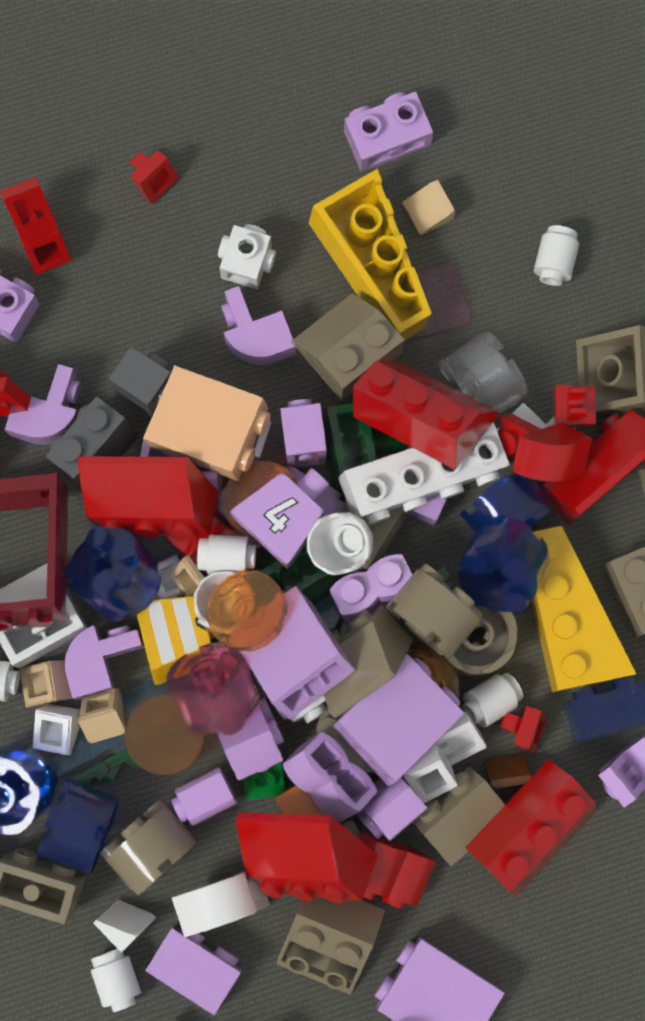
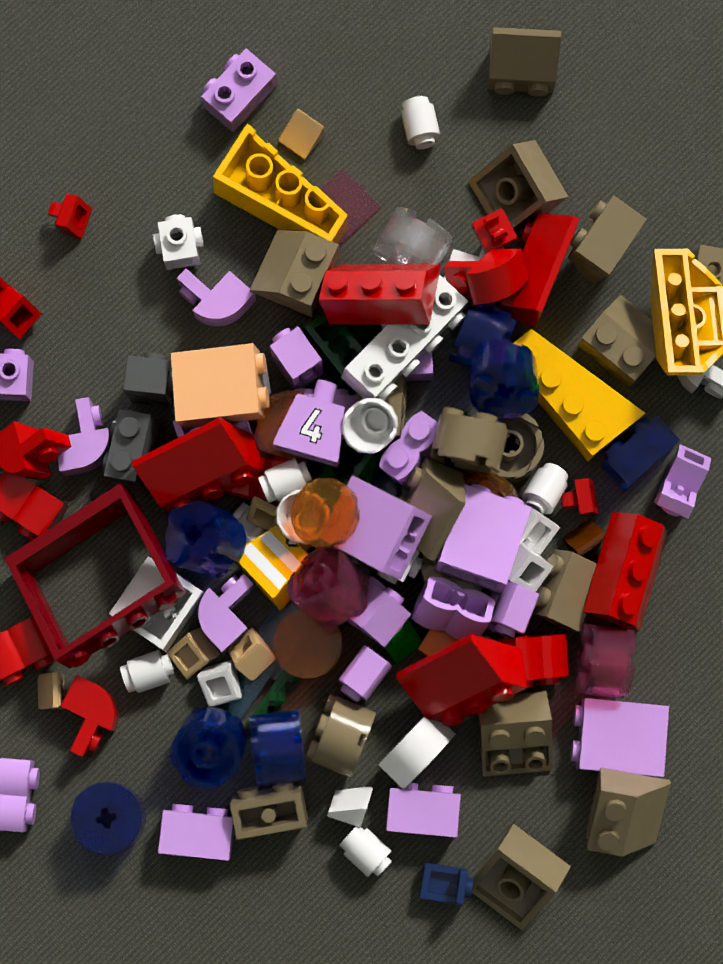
camera: 25 degrees left, 0 degrees up
(462, 911) = (605, 661): none -> clear pink brick

